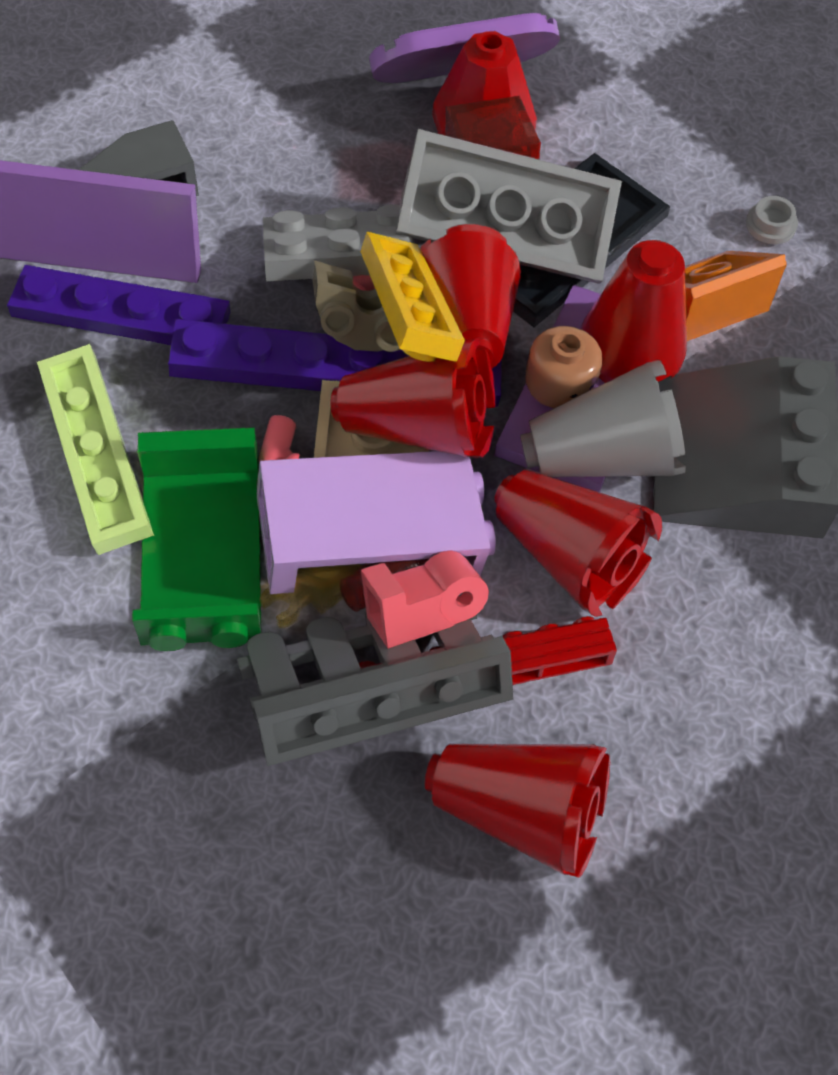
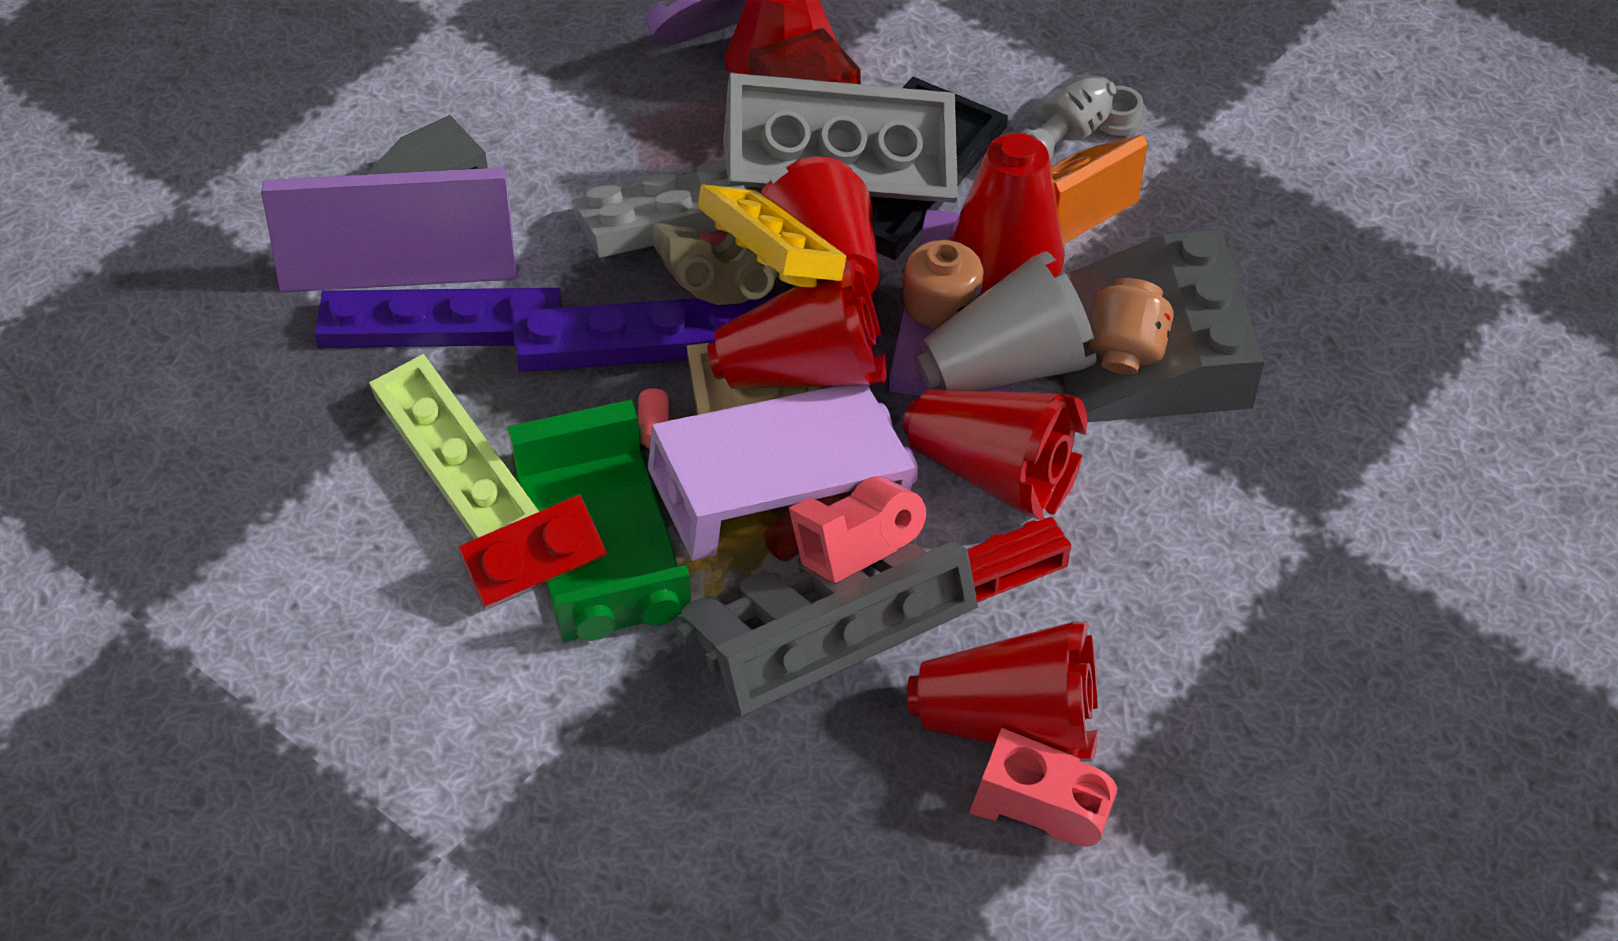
camera: 10 degrees left, 10 degrees down
(129, 557) = (532, 552): none -> red plate
(529, 898) = (1045, 790): none -> coral leg
(724, 445) = (1130, 325): none -> nougat head
(728, 212) = (1072, 109): none -> light grey piece

